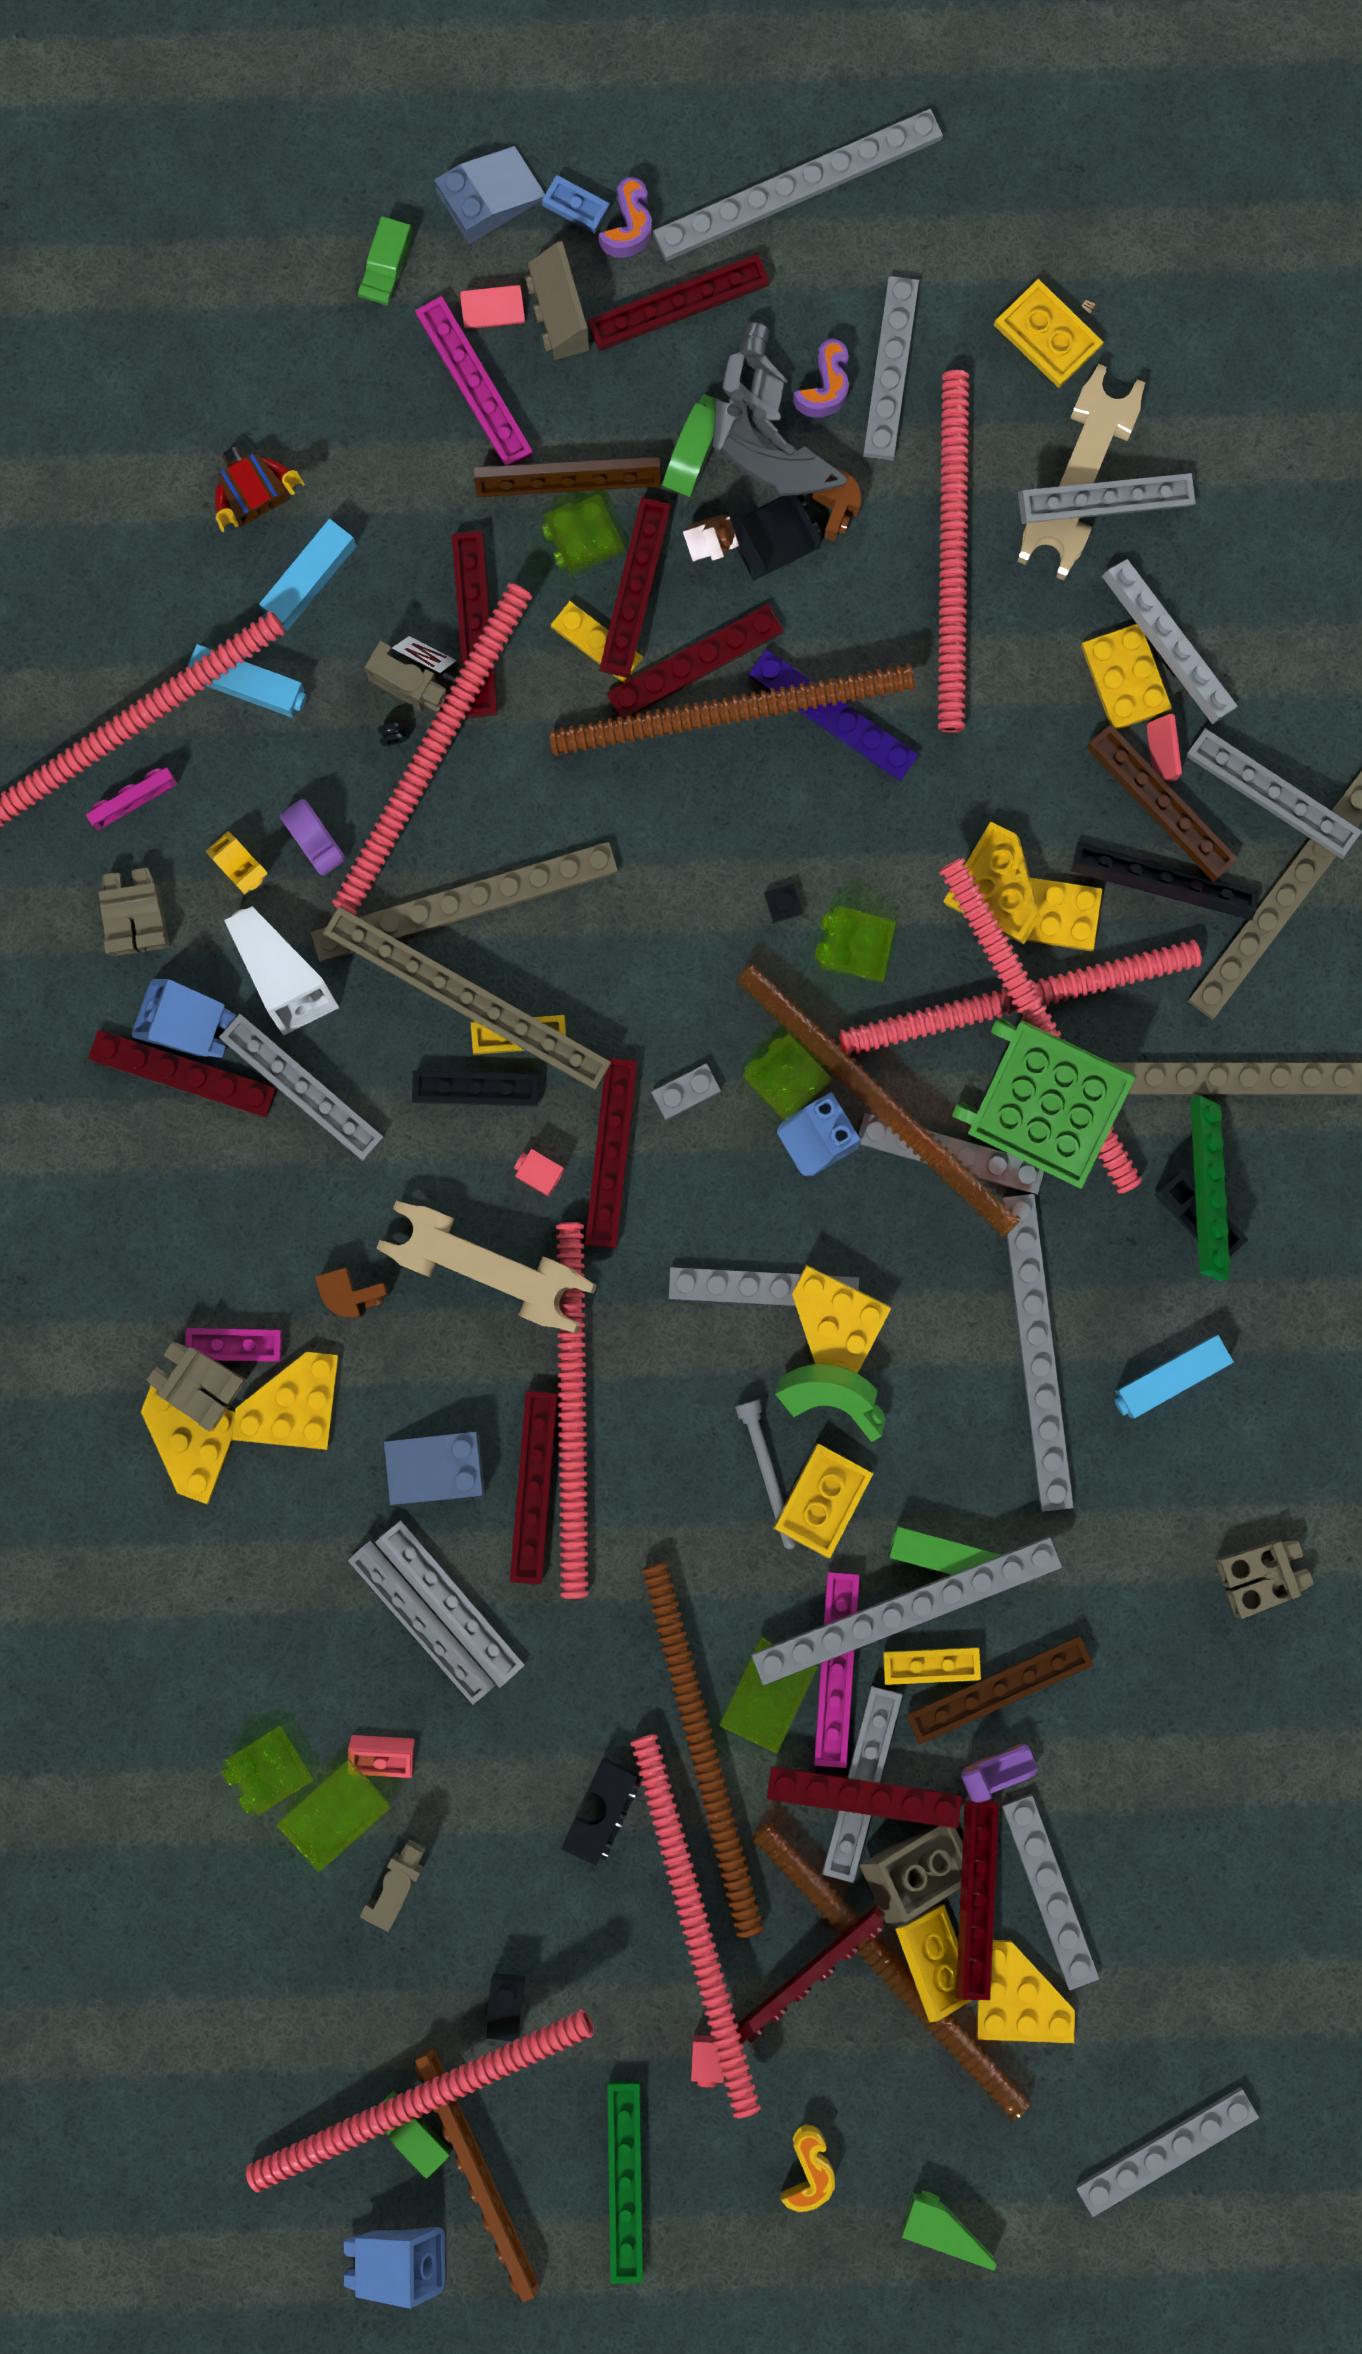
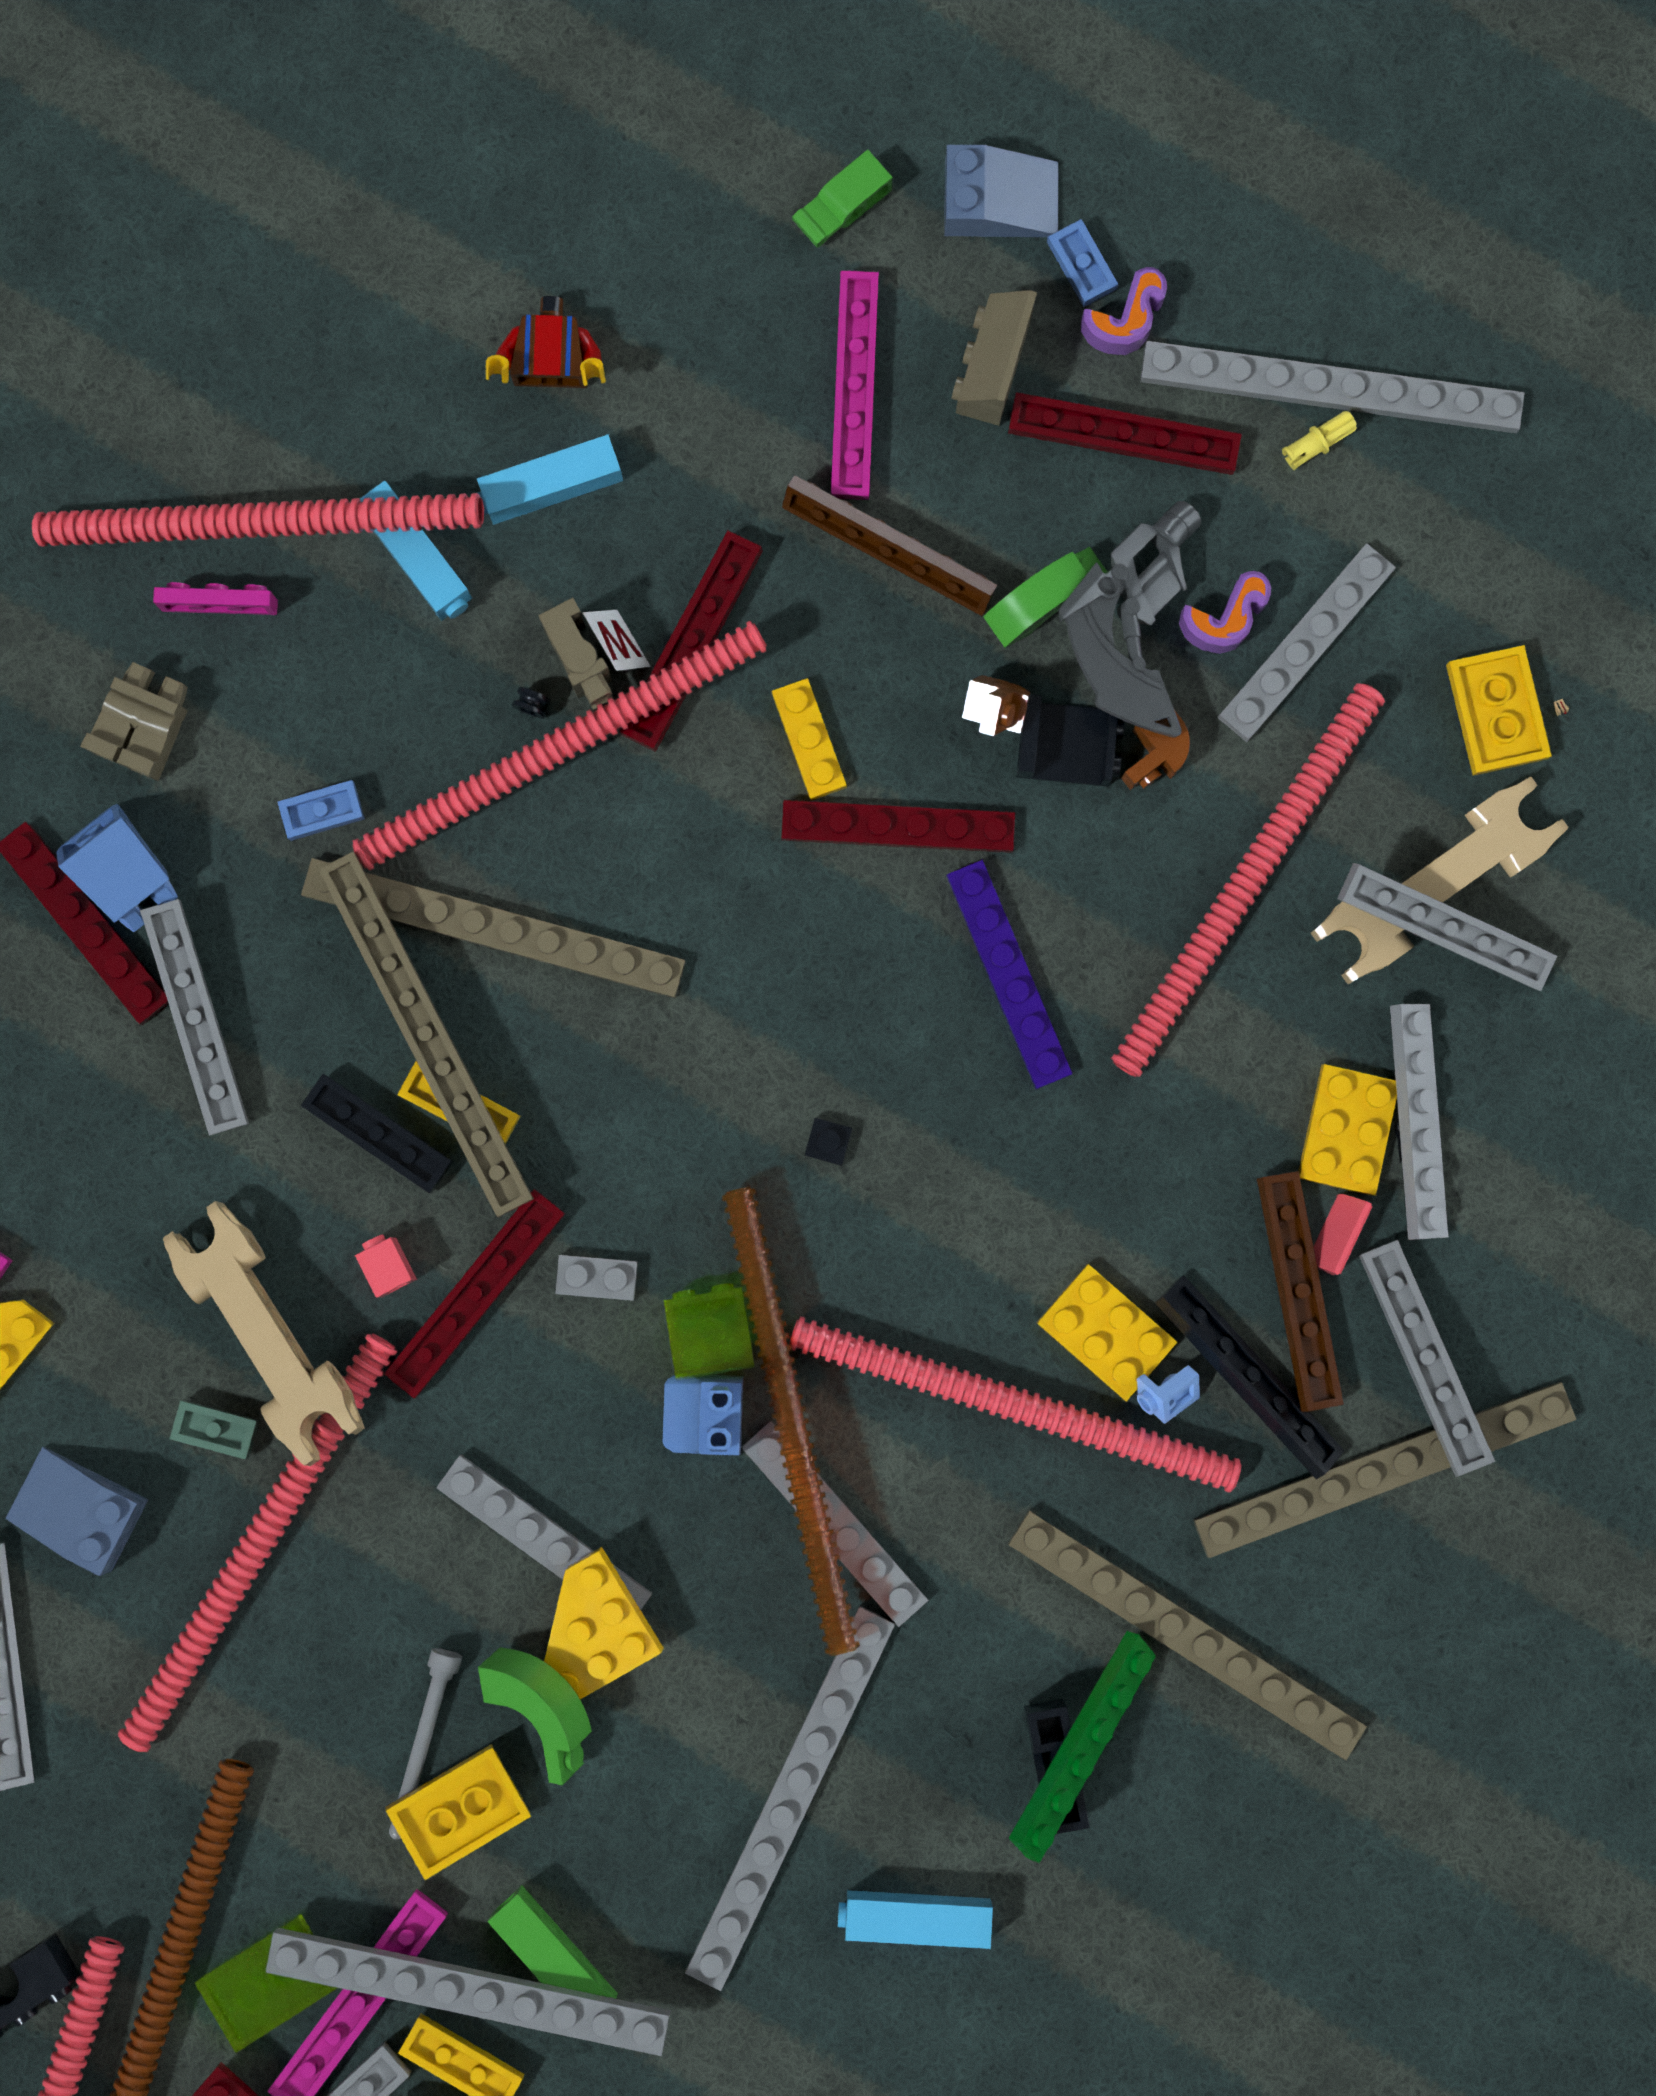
camera: 30 degrees right, 0 degrees up
(236, 863) = (280, 737): yellow brick -> none
(283, 979) = (245, 883): white slope -> none
(296, 895) = (321, 810): none -> medium blue plate
(312, 837) = (375, 759): medium lavender animal -> none
(342, 1299) = (94, 1265): dark orange brick -> none
(492, 307) = (925, 317): coral slope -> none
(493, 1354) = (214, 1429): none -> sand green plate
(533, 1487) = (164, 1598): dark red plate -> none
(581, 534) = (865, 616): clear neon green plate -> none
(635, 587) = (883, 708): dark red plate -> none
(732, 709) = (902, 902): dark orange piece -> none
(812, 225) = (1319, 439): none -> light yellow axle
(855, 943) = (875, 1234): clear neon green plate -> none
(1004, 881) = (1065, 1269): yellow plate -> none
(1024, 995) = (1014, 1453): coral piece -> none
(1049, 1102) = (969, 1540): bright green plate -> none
(1121, 925) = (1171, 1396): none -> light blue bracket

